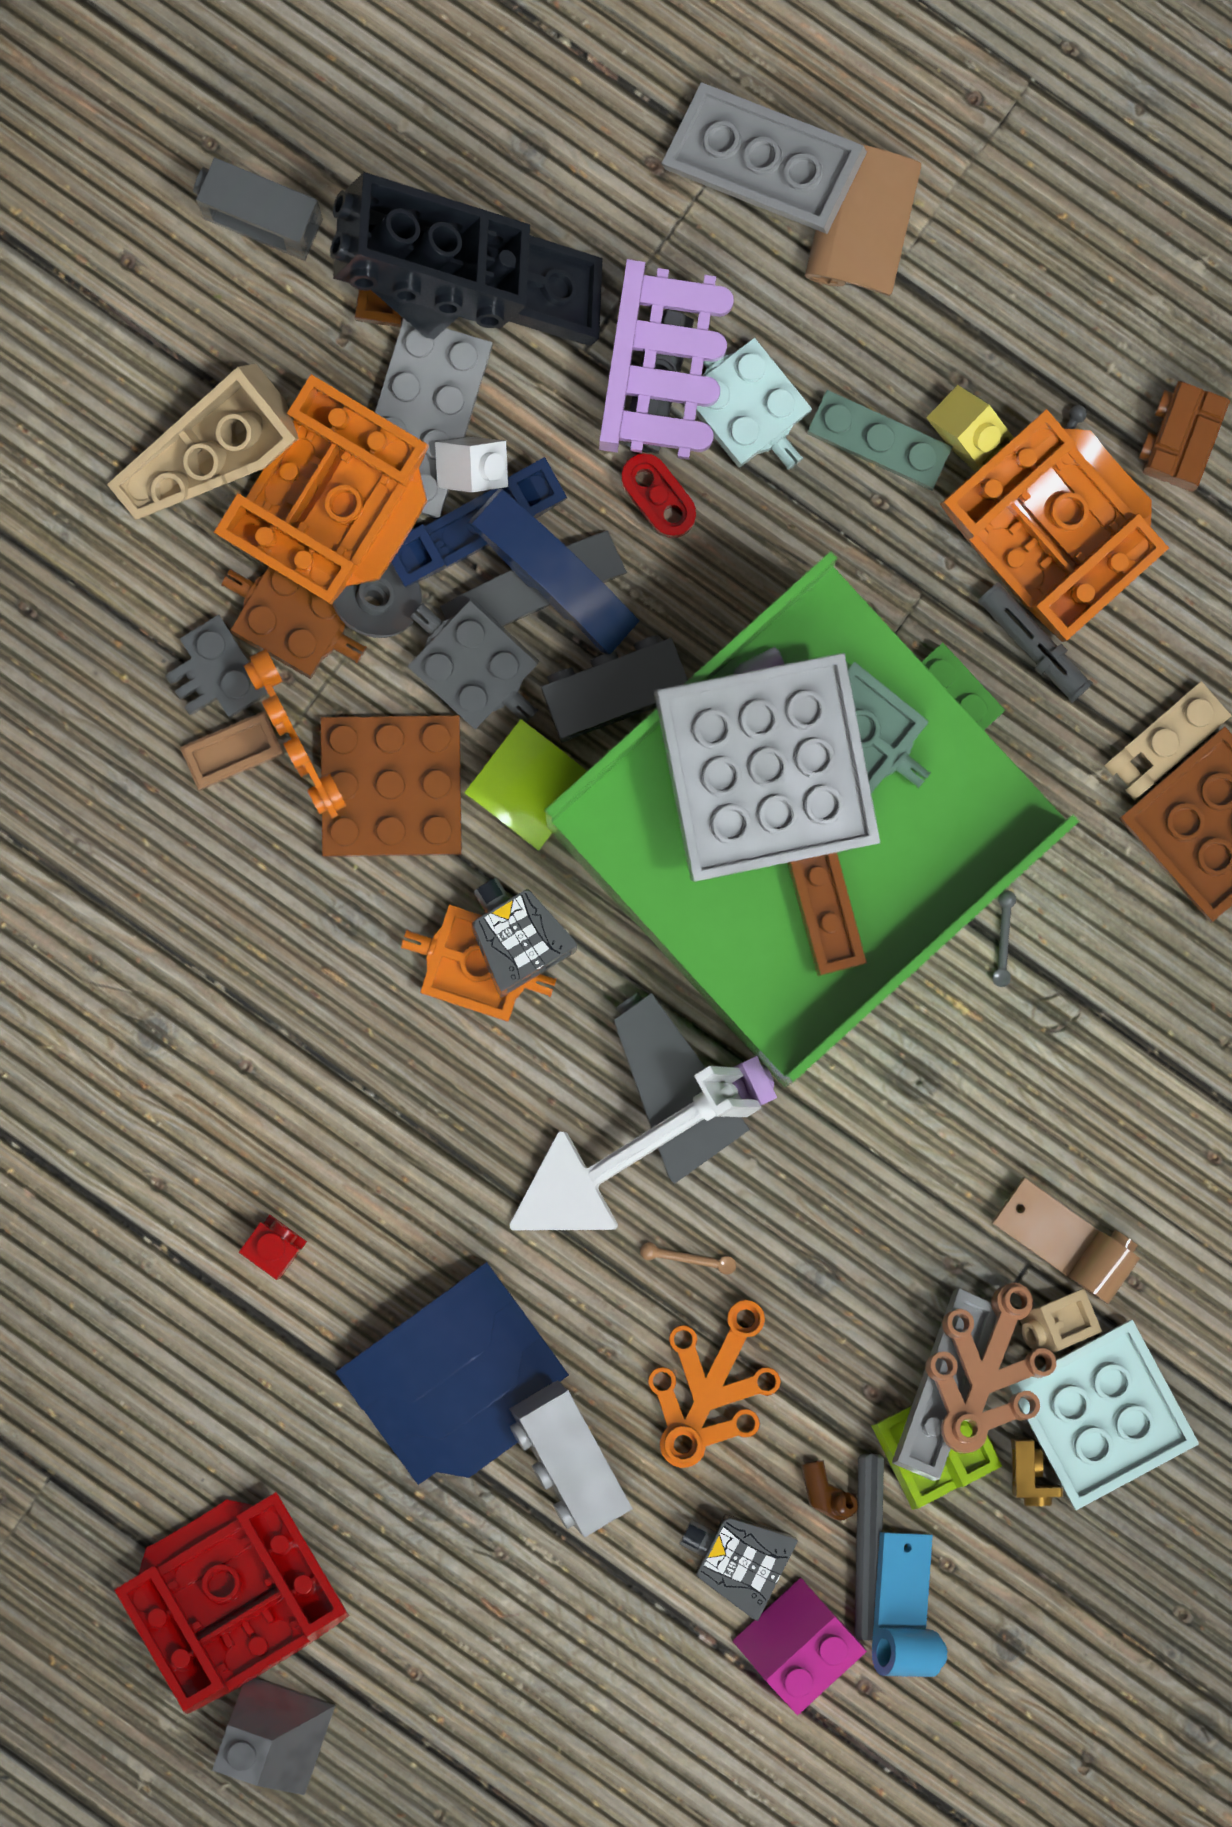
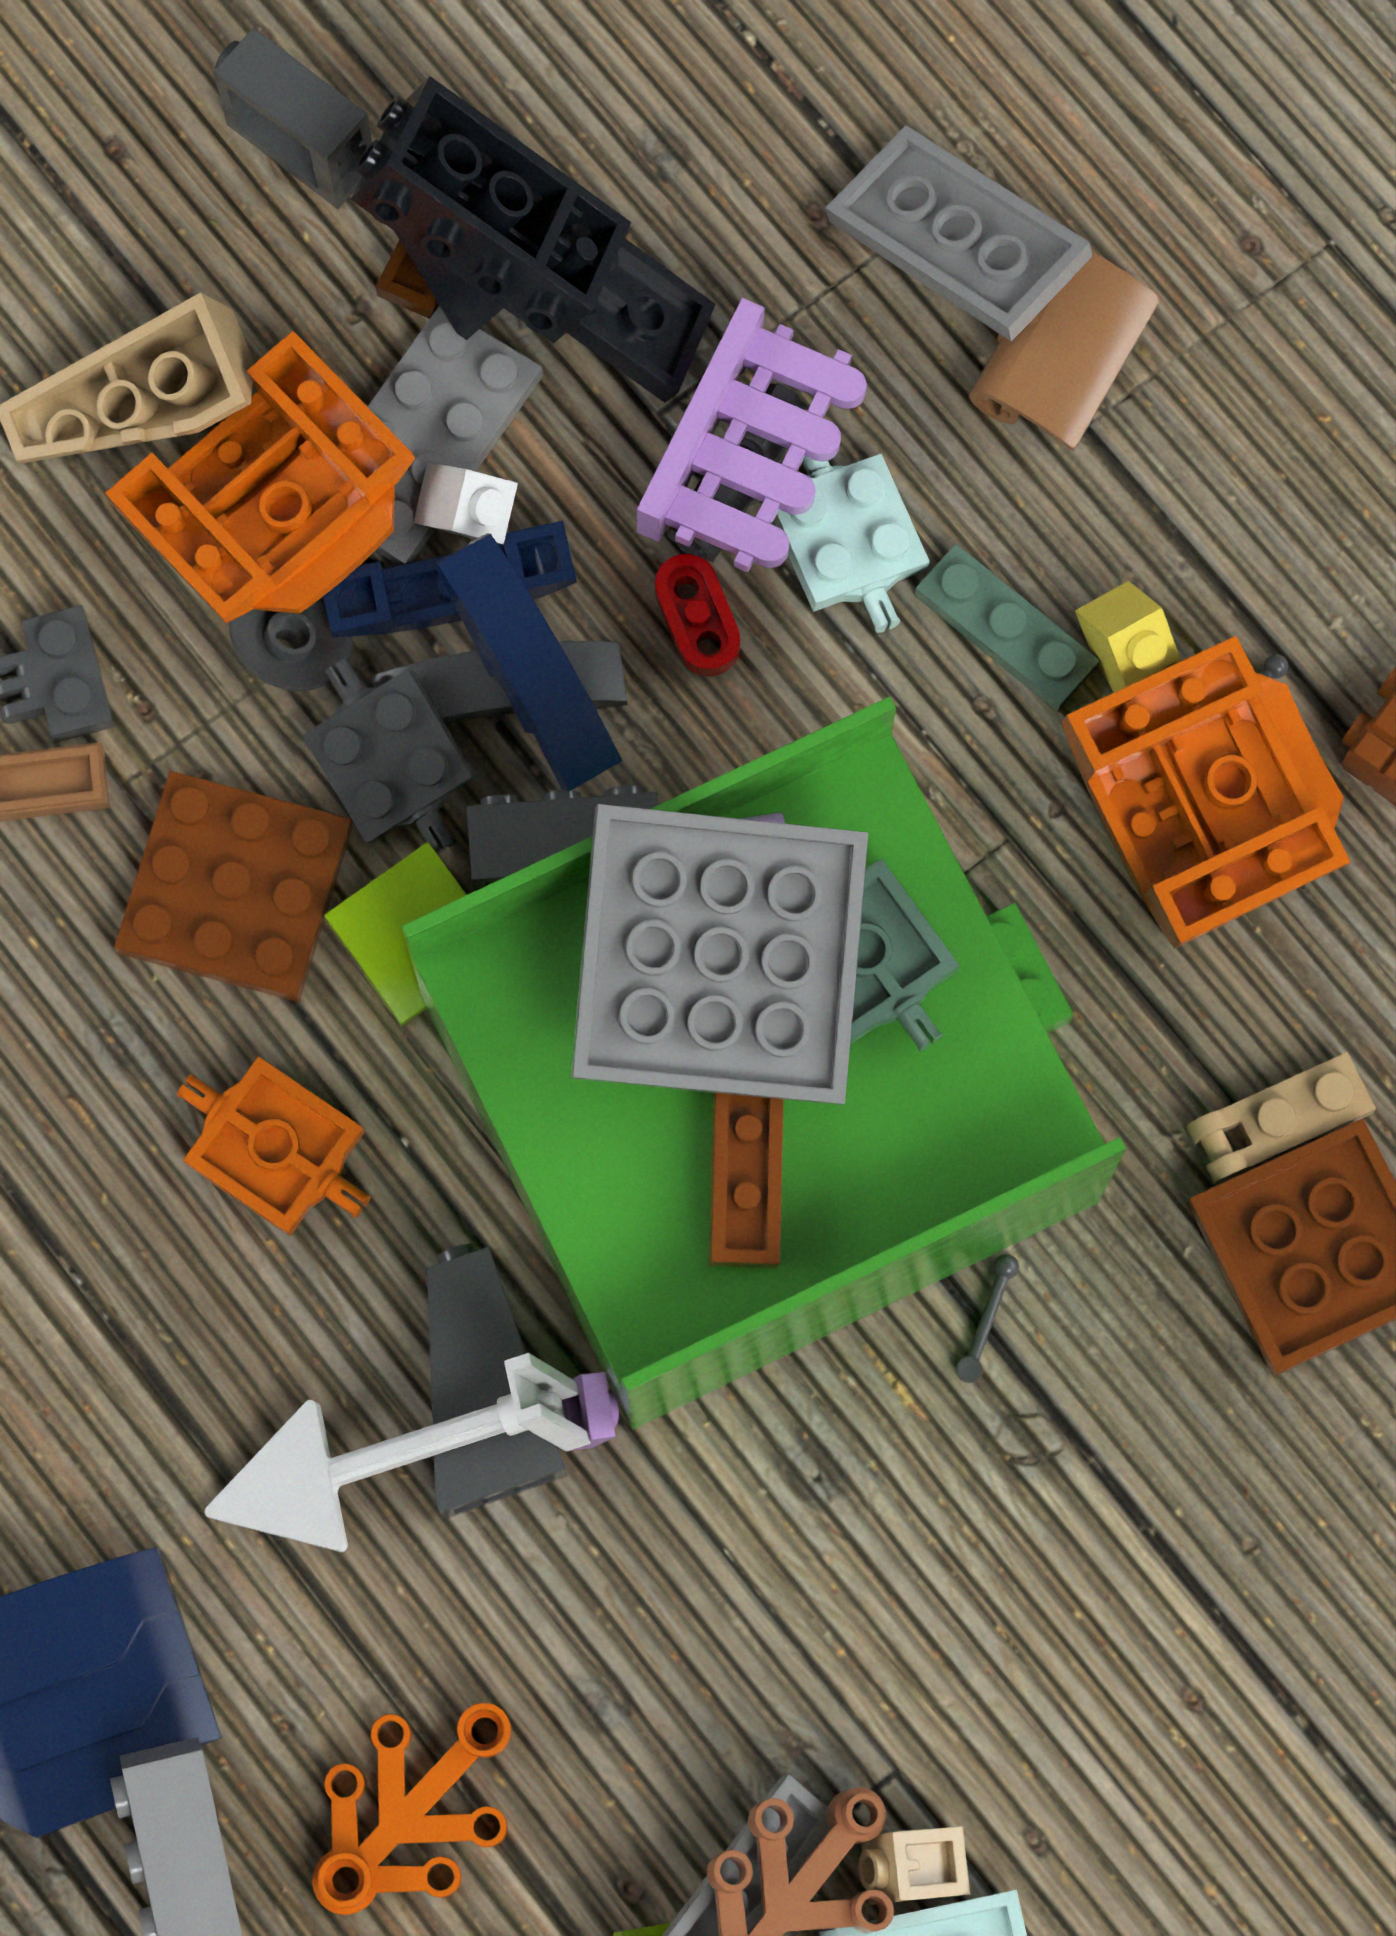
camera: 20 degrees right, 10 degrees down
(289, 622) = (170, 640): dark orange plate -> none
(325, 792) = (139, 858): orange plant -> none
(517, 937) = (333, 1121): torso -> none
(725, 1264) = (480, 1649): medium nougat hinge -> none
(1067, 1241) = (958, 1754): medium nougat door -> none
(1072, 684) = (1171, 1004): dark grey pin -> none

